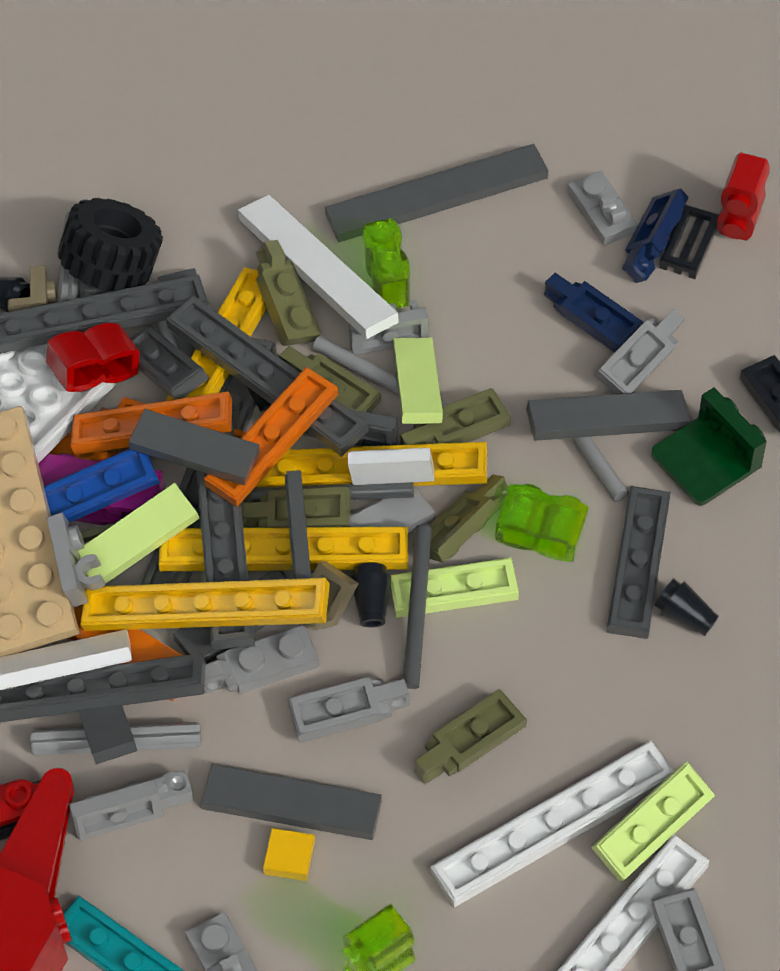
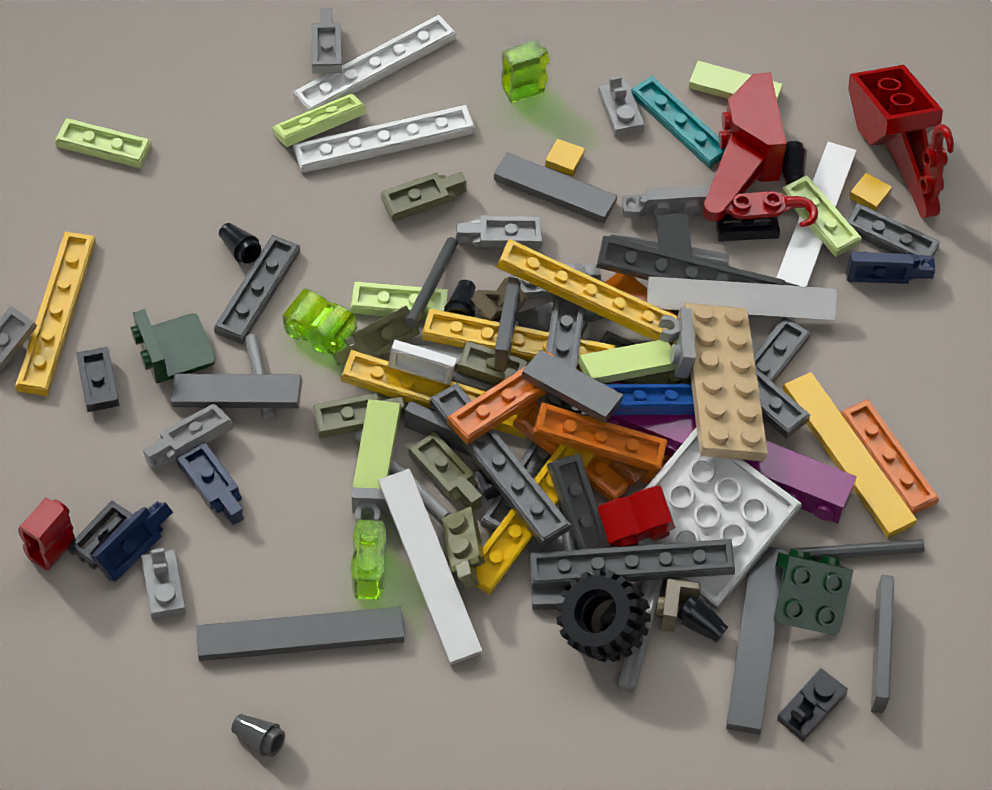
camera: 170 degrees left, 0 degrees up
(444, 90) = (259, 734): none -> dark grey cone

